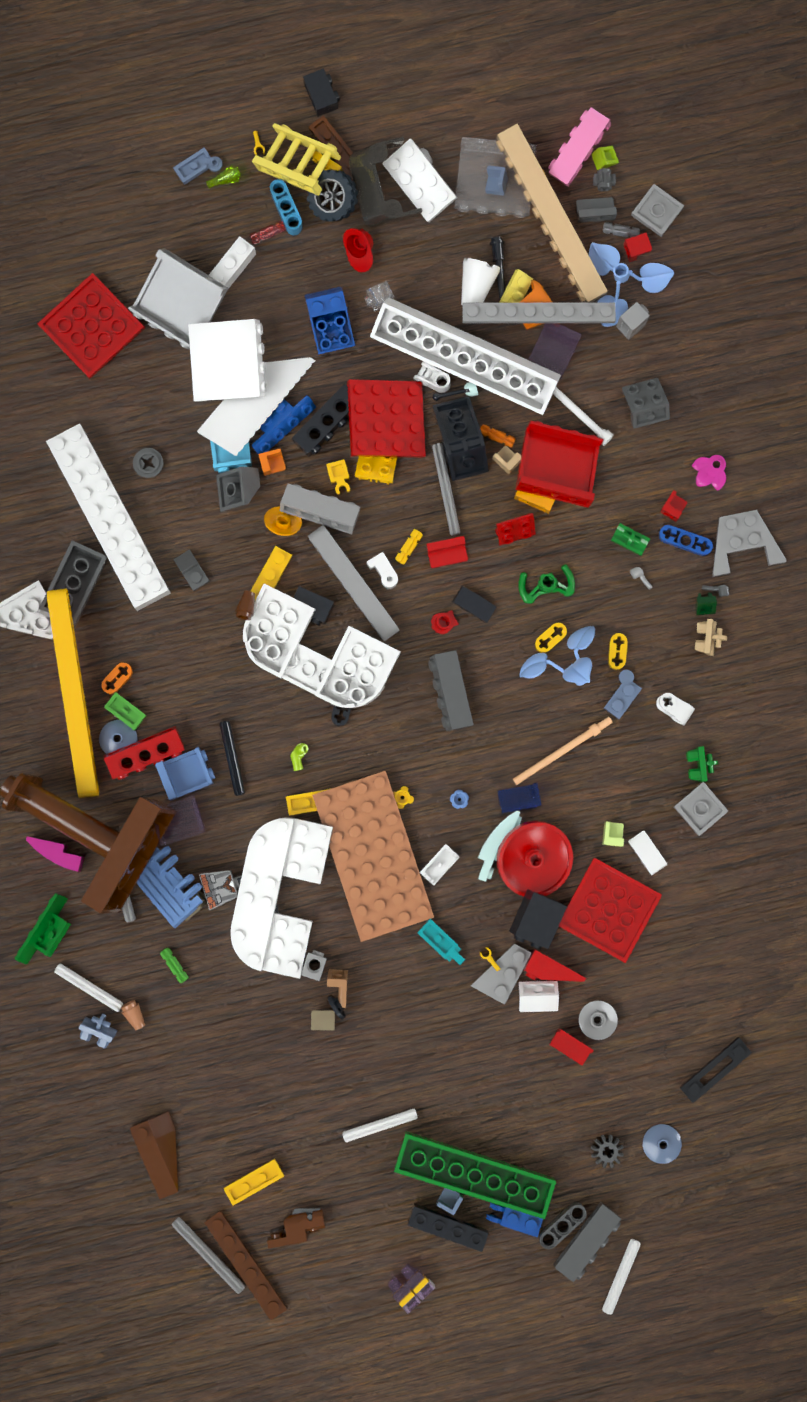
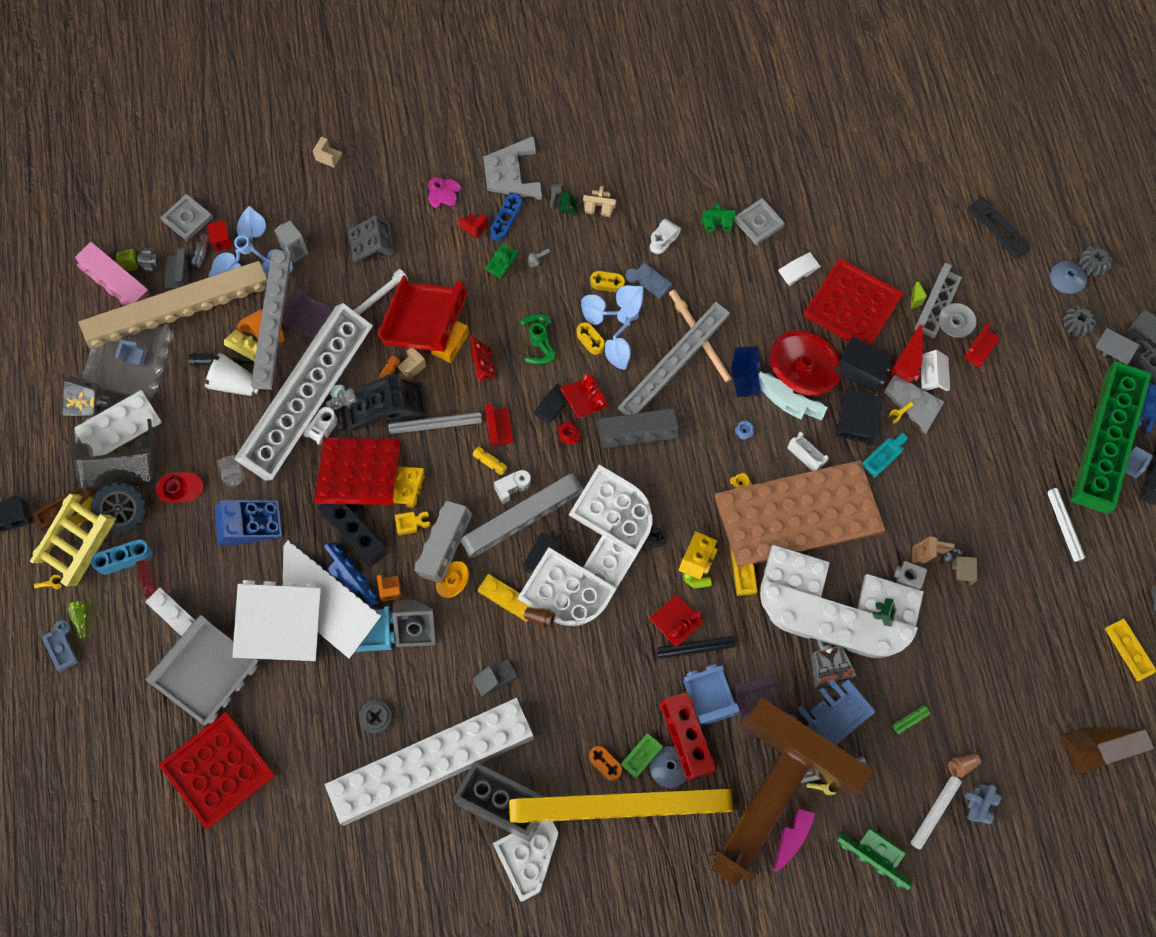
camera: 85 degrees left, 15 degrees down
(256, 738) = (677, 620): none -> red hinge
(270, 939) = (887, 612): none -> dark green tile
(320, 755) = (697, 555): none -> yellow brick
(444, 142) = (82, 397): none -> torso
(461, 397) = (345, 398): none -> clear piece
(482, 916) = (859, 416): none -> black brick
(483, 635) = (585, 396): none -> red hinge
(528, 724) = (674, 360): none -> light grey plate
(575, 1189) = (1120, 347): none -> brick
(613, 834) = (782, 298): yellowish green panel -> none
(622, 978) = (918, 296): none -> lime slope
(624, 995) = (927, 310): none -> light grey fence
(675, 1167) = (1095, 261): none -> dark grey gear
(747, 344) = (326, 154): none -> tan panel

